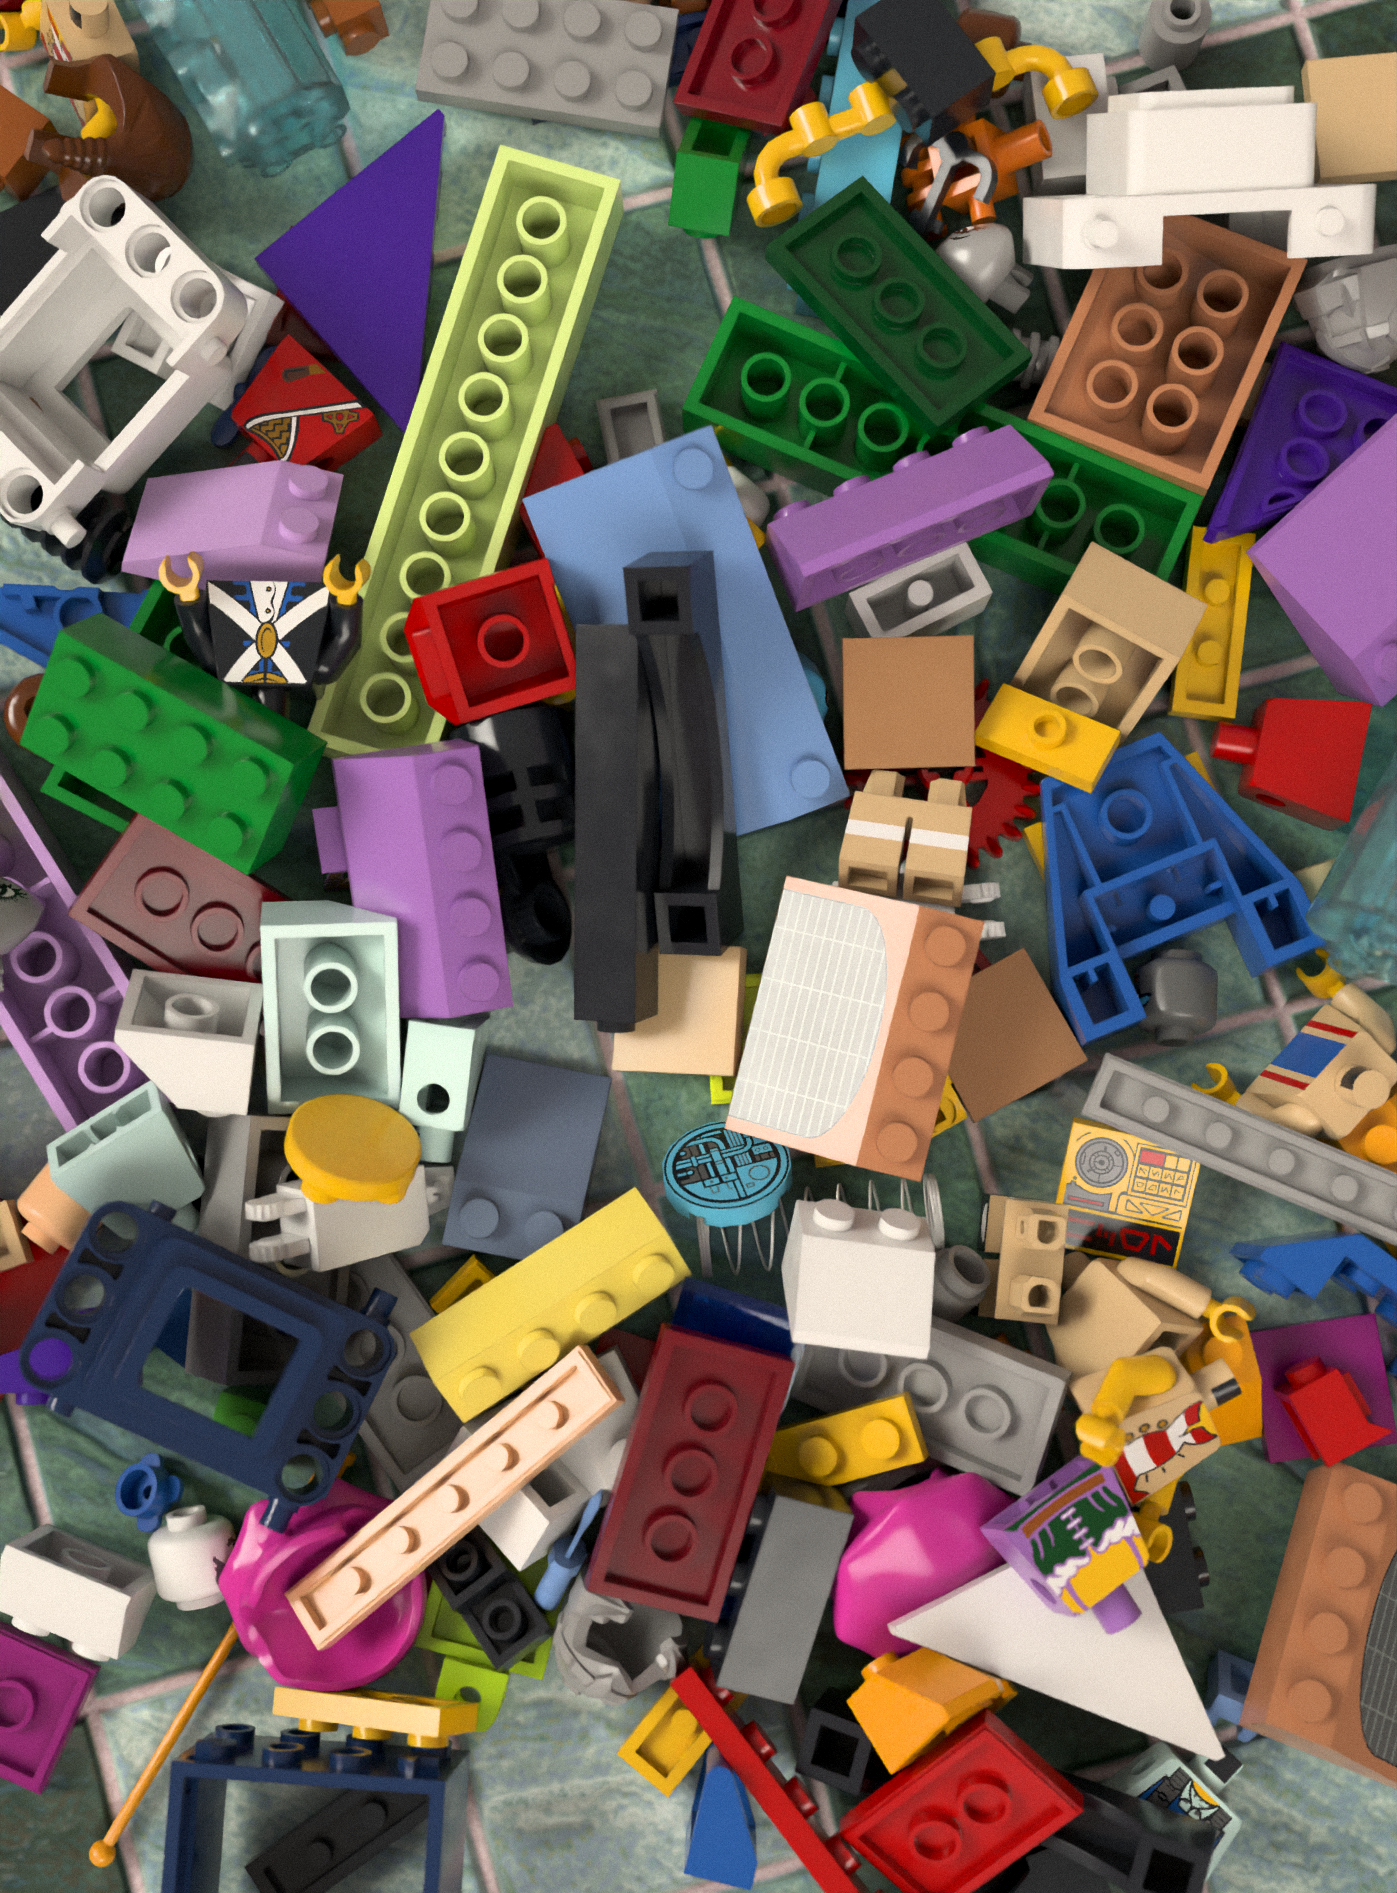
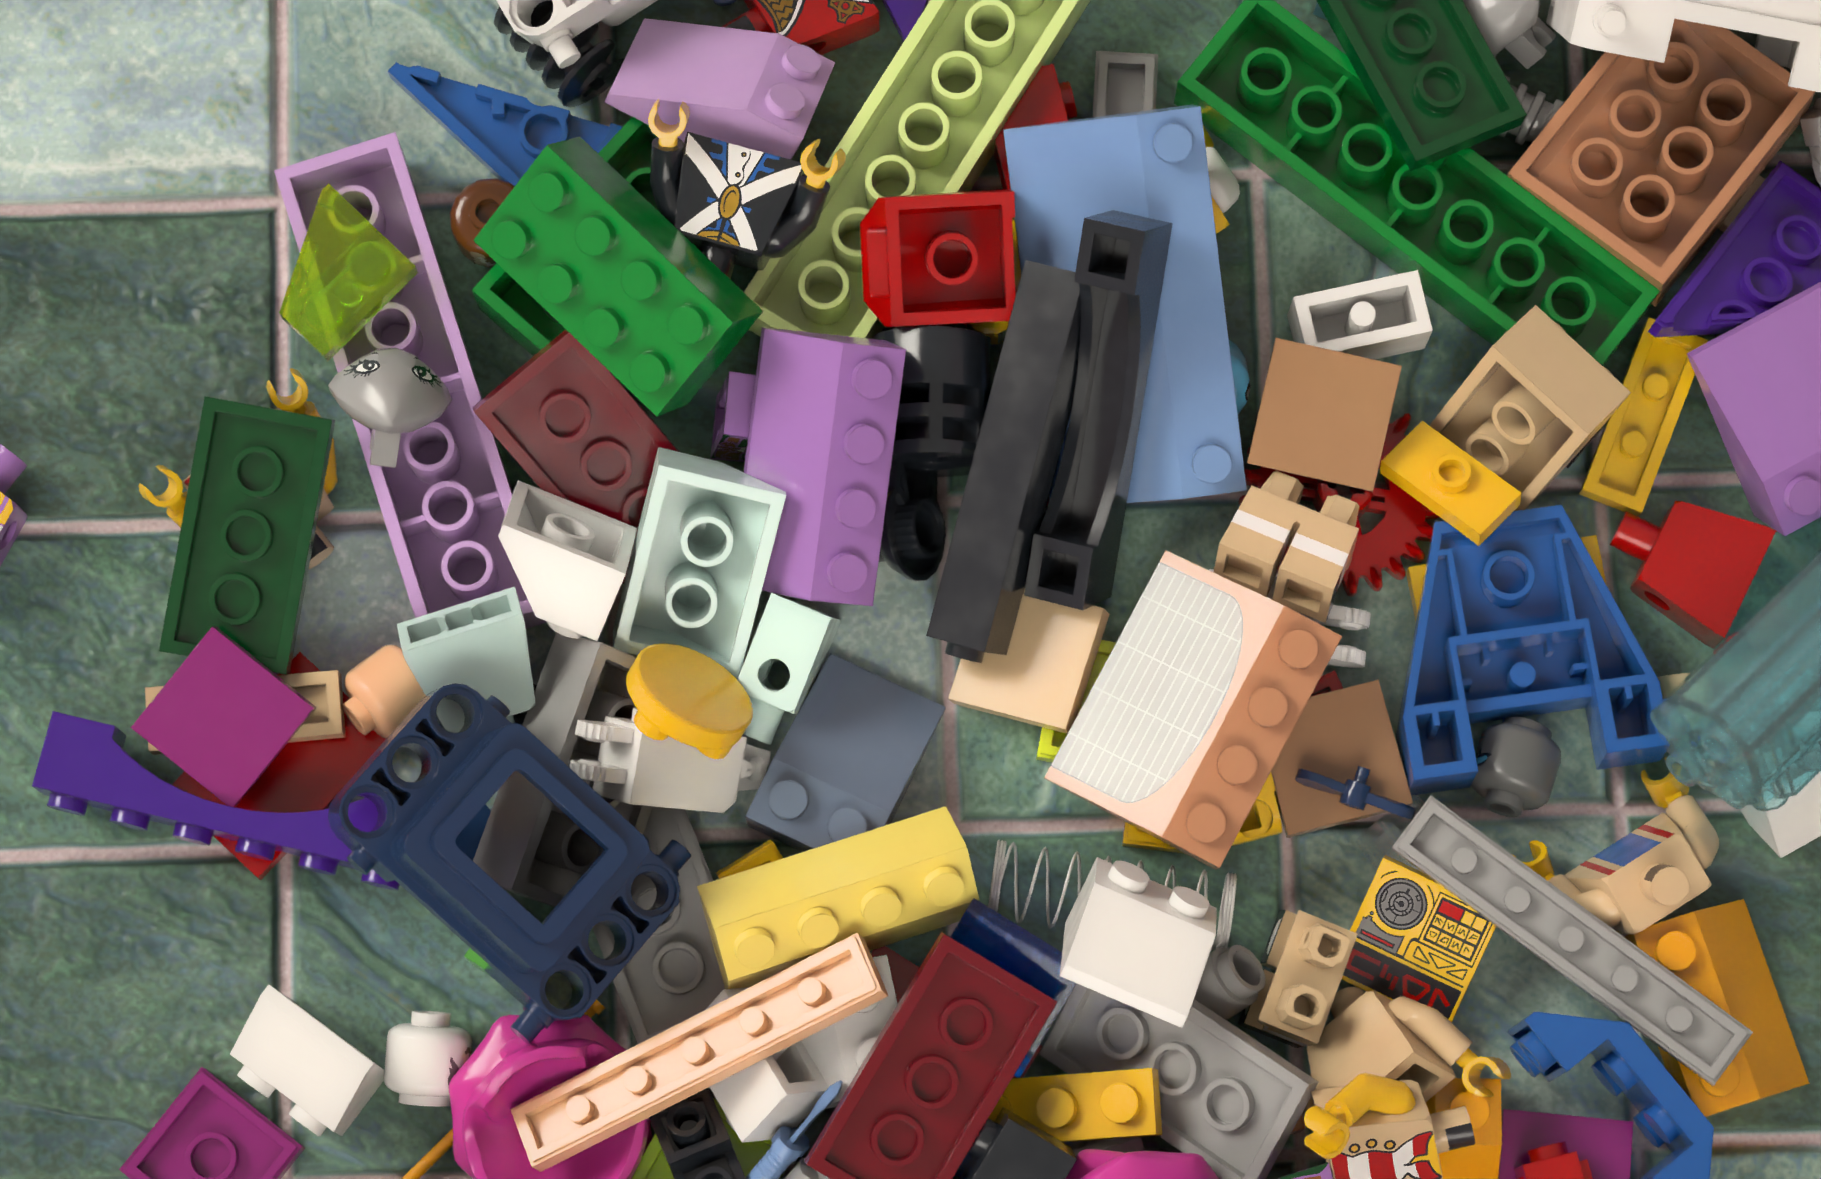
camera: 10 degrees right, 5 degrees down
(148, 1492) = (387, 978): blue plate -> none
(725, 1175) = (1034, 822): medium azure tile -> none
(905, 514) = (1363, 236): medium lavender slope -> none
(1032, 1066) = (1354, 792): none -> dark blue piece

